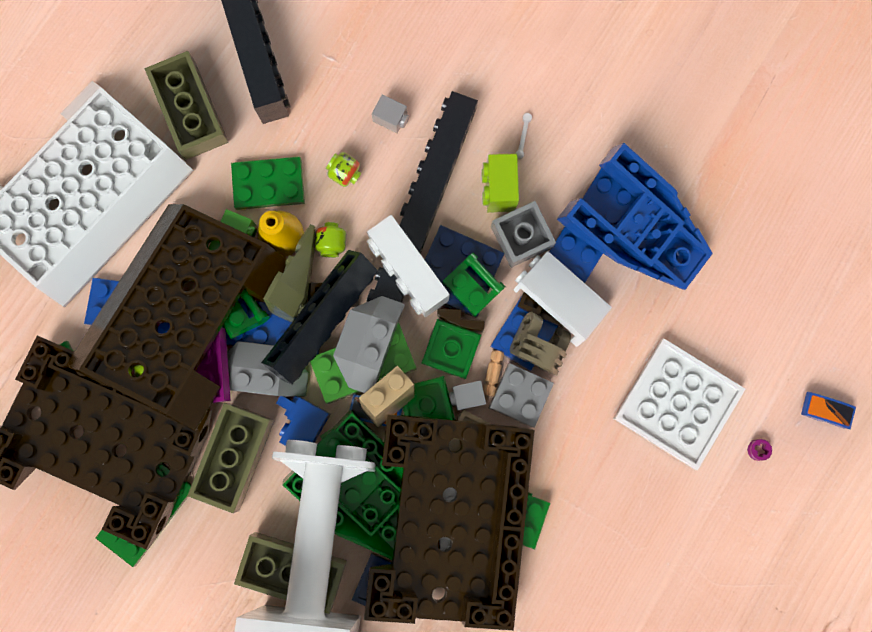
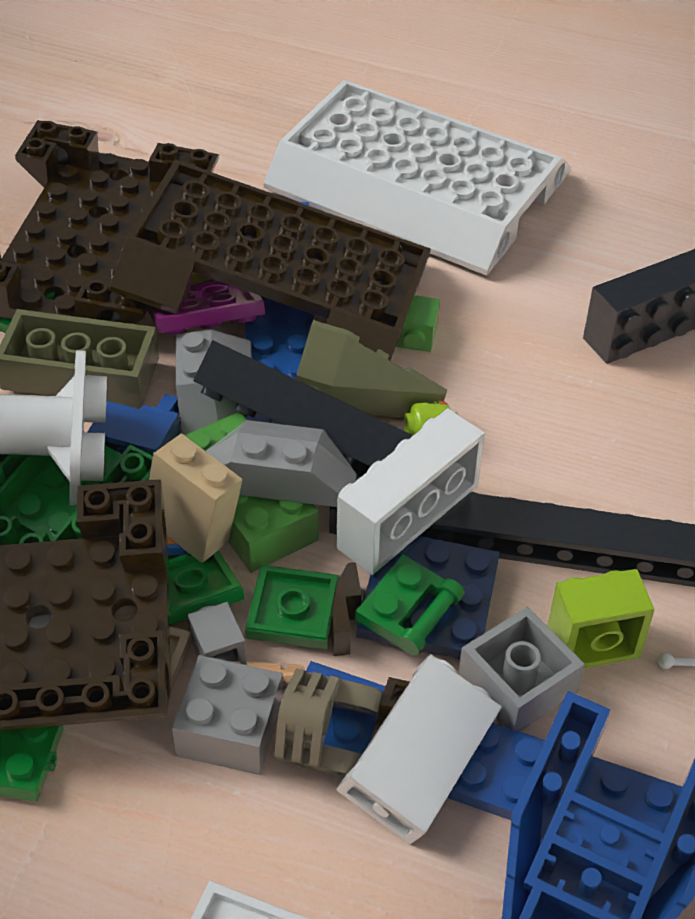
camera: 80 degrees right, 35 degrees down
(186, 105) = (572, 246): olive brick -> none
(239, 322) = (281, 326): green plate -> none
(267, 183) = (496, 352): green plate -> none
(280, 231) = (430, 348): yellow cone -> none
(343, 169) = (547, 424): lime head -> none
(390, 114) = (658, 467): light grey brick -> none

